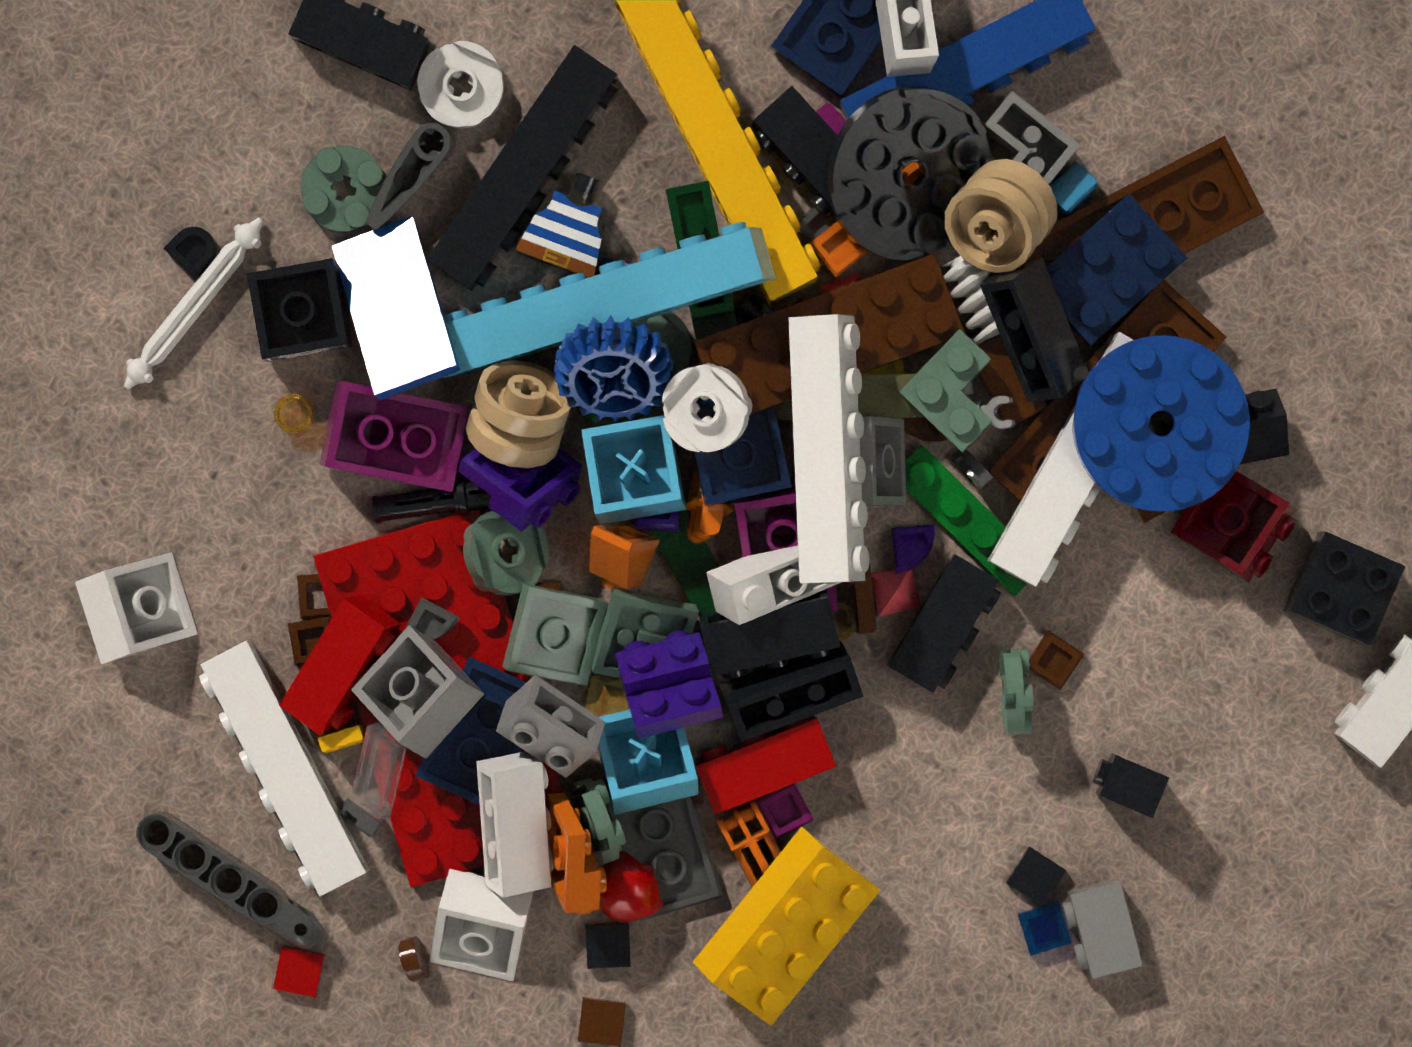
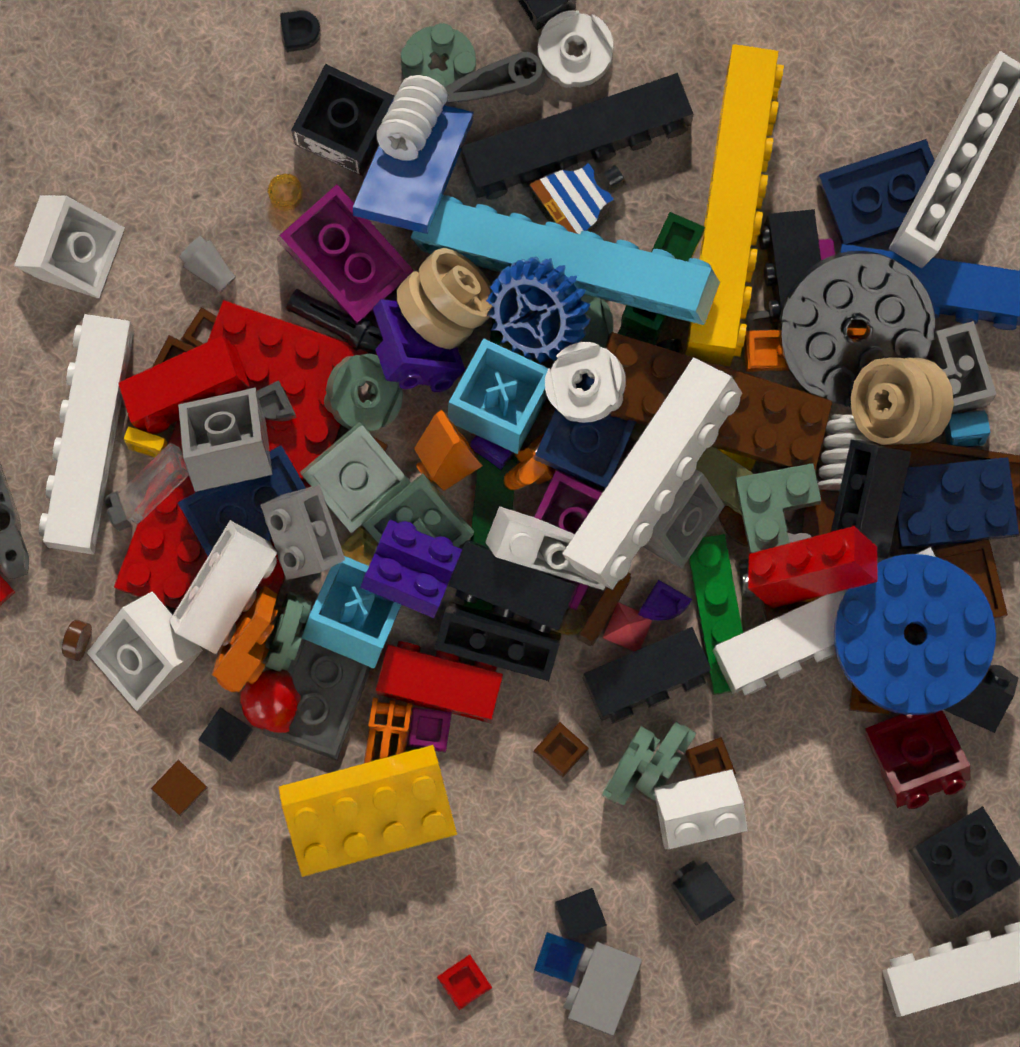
camera: 35 degrees right, 10 degrees down
(193, 303) = (272, 66): white wheel -> none
(273, 533) = (206, 263): none -> light grey cone
(363, 268) = (411, 117): none -> white piece
(914, 744) = (561, 750): none -> reddish brown tile
(976, 1009) = (464, 982): none -> red tile
(990, 712) = (631, 766): none -> sand green plate
(1029, 429) = (813, 567): none -> red brick
(1080, 716) = (700, 809): none -> white slope

